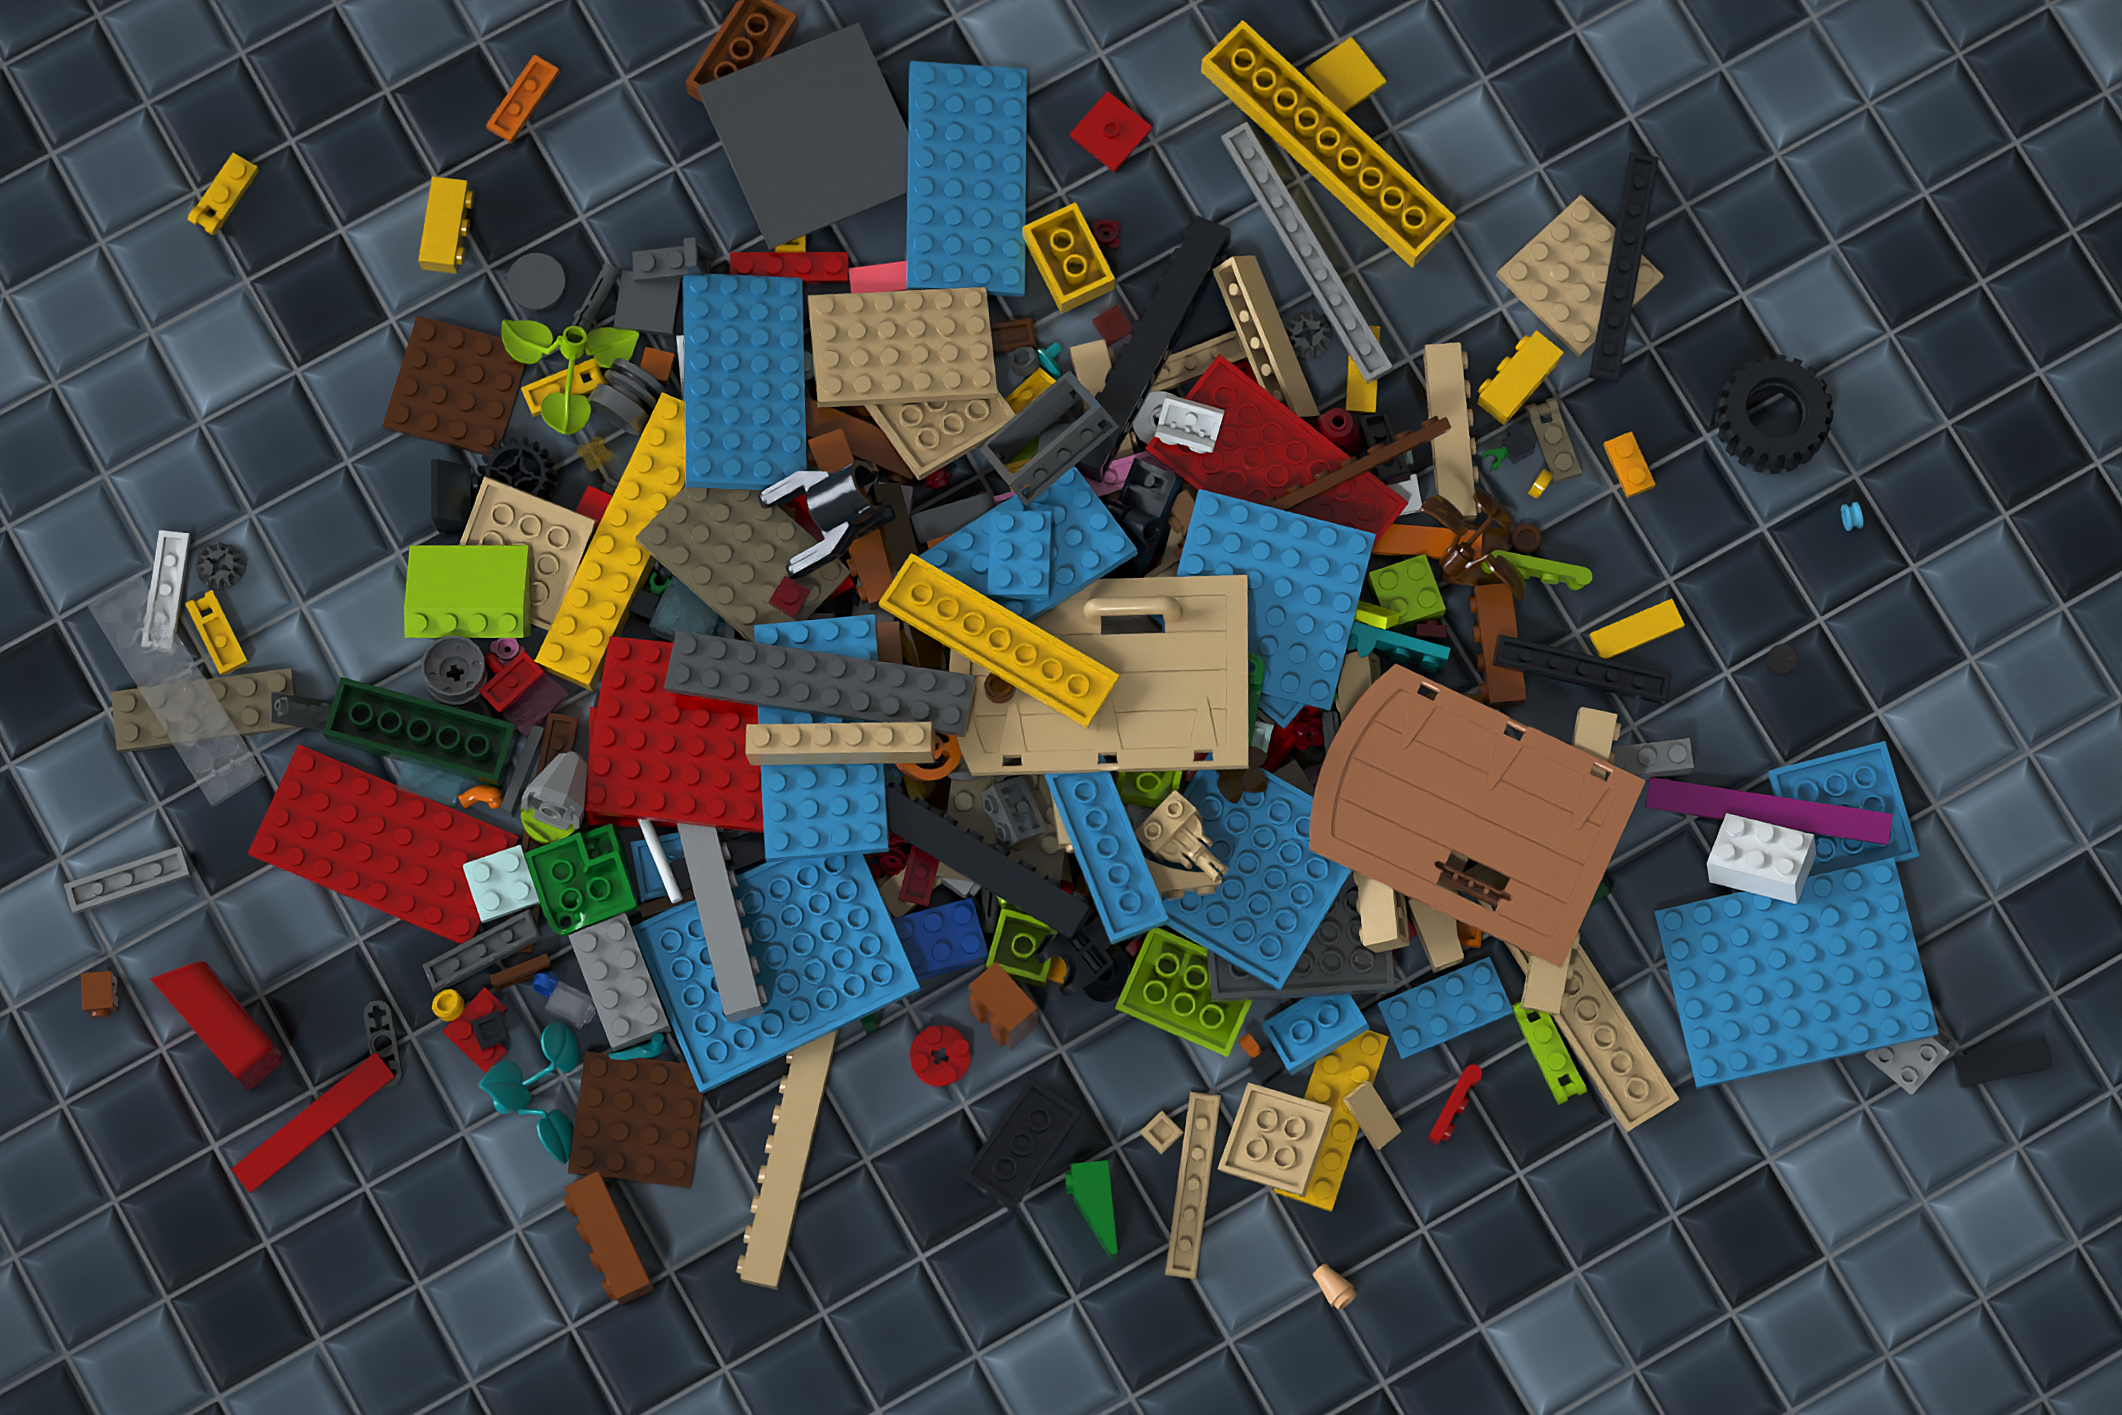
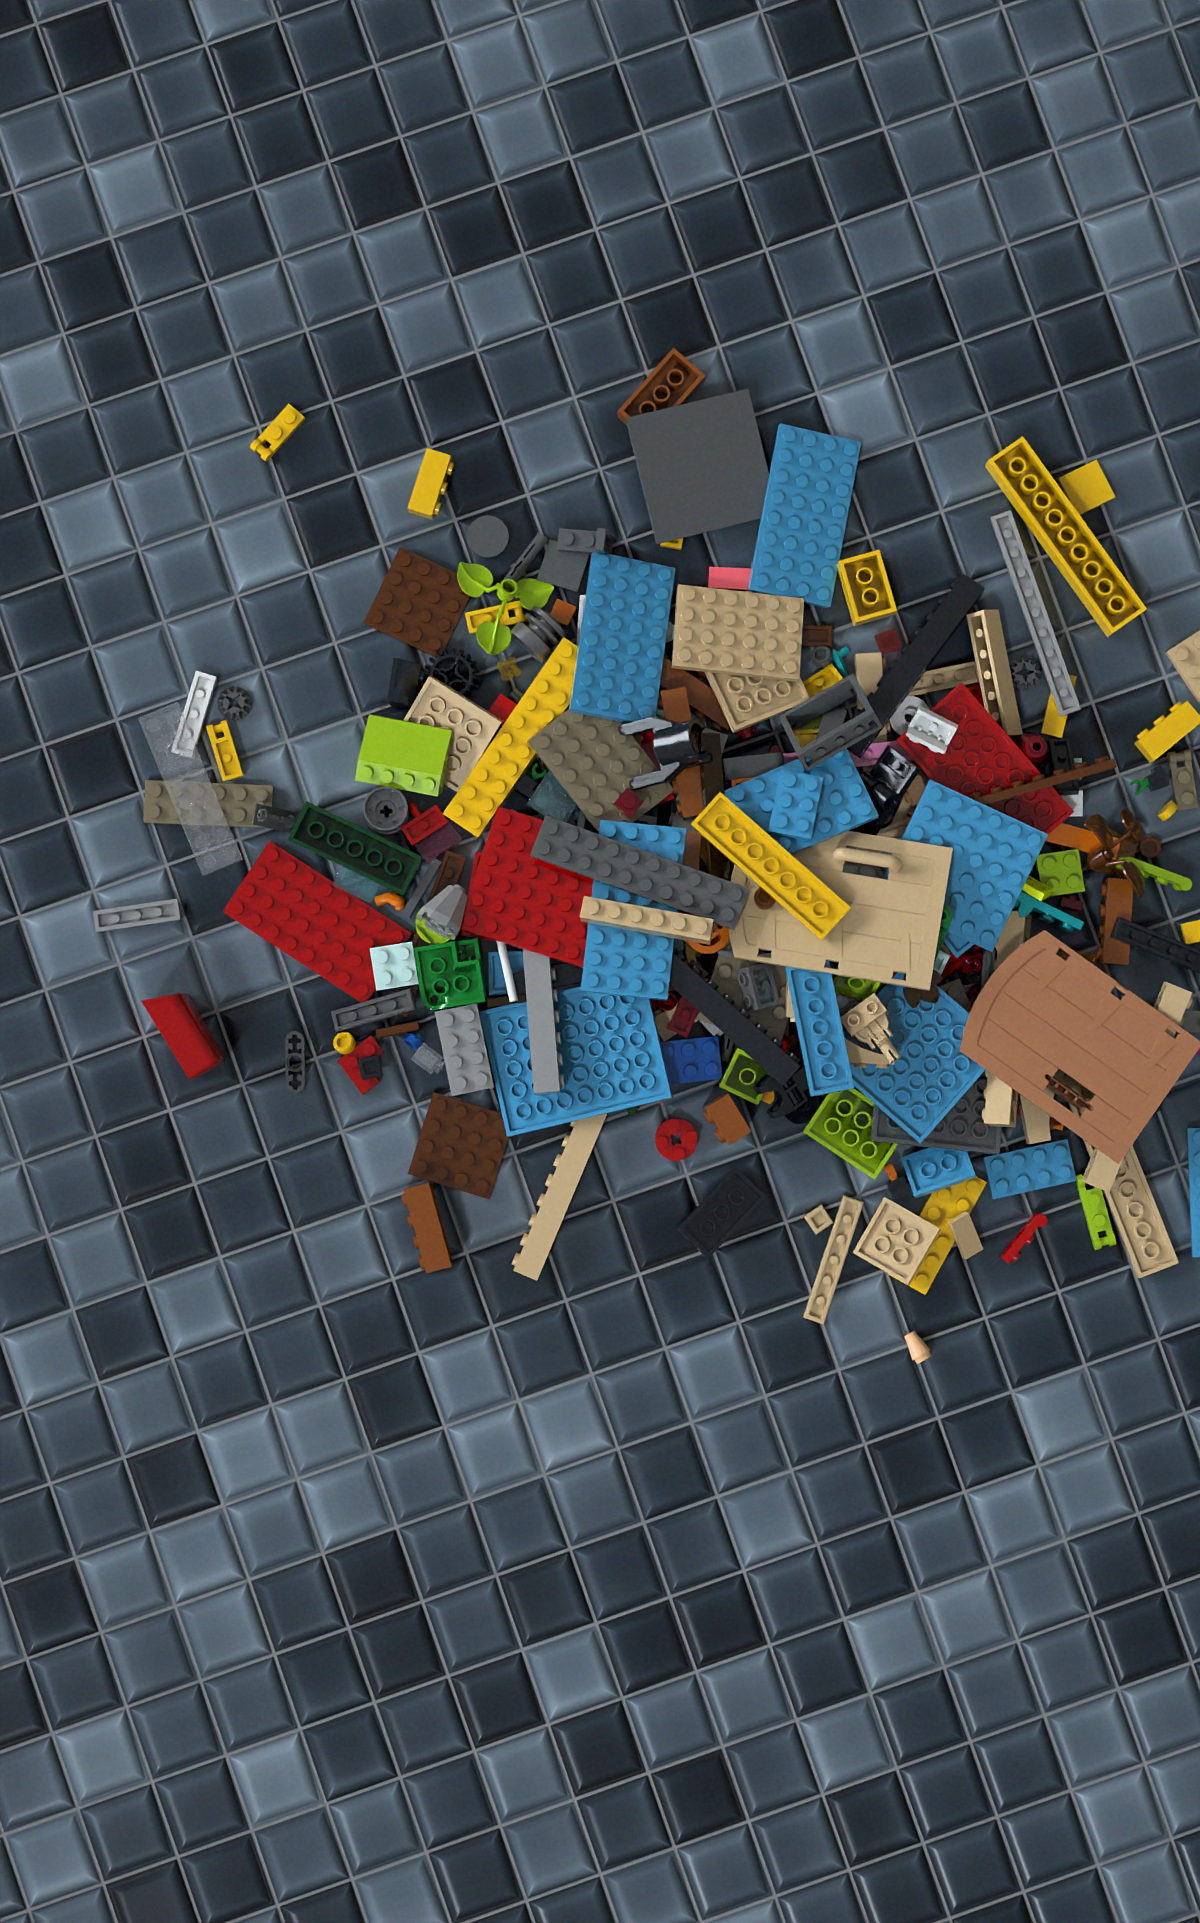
camera: 10 degrees right, 10 degrees up
(99, 993) = (106, 992): dark orange brick -> none
(313, 1122) = (239, 1108): red tile -> none
(499, 648) = (422, 805): bright pink plate -> none
(510, 1093) = (376, 1115): teal plant -> none
(523, 99) = (500, 400): orange plate -> none
(644, 1050) = (472, 1098): teal bar -> none
(809, 266) = (681, 560): red plate -> none
(1093, 1197) = (764, 1256): green slope -> none
(1111, 131) = (912, 499): red plate -> none
(1112, 227) = (900, 569): dark red plate -> none
(1452, 450) = (1113, 742): tan brick -> none

